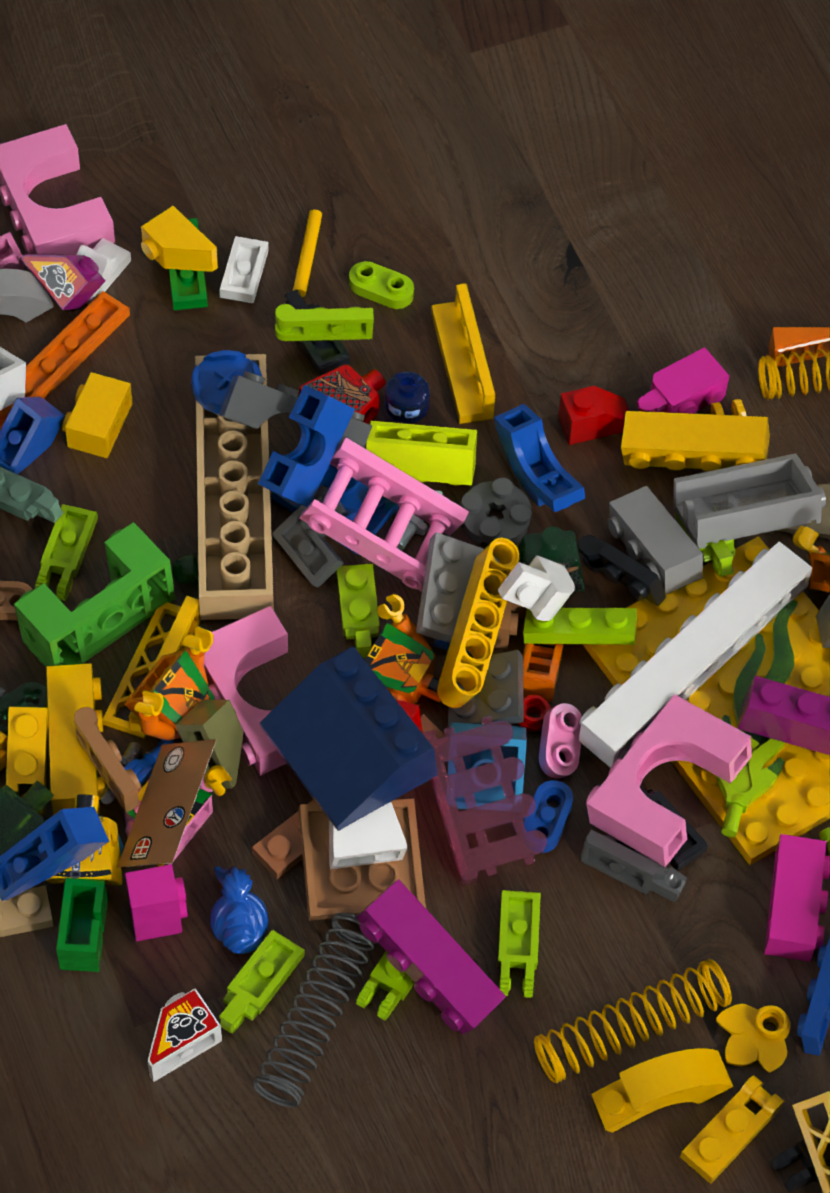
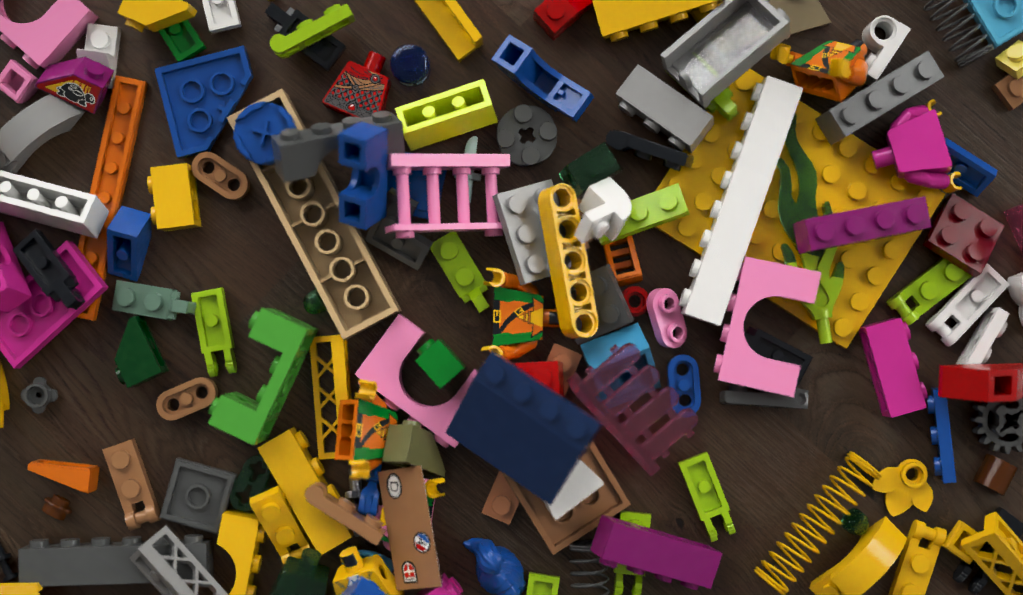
camera: 20 degrees left, 30 degrees up
(158, 419) = (221, 177): none -> medium nougat plate
(170, 339) = (201, 96): none -> blue plate
(287, 662) = (439, 361): none -> green piece
(679, 1041) = (856, 523): none -> clear green hinge
(787, 1123) = (954, 540): none -> yellow brick

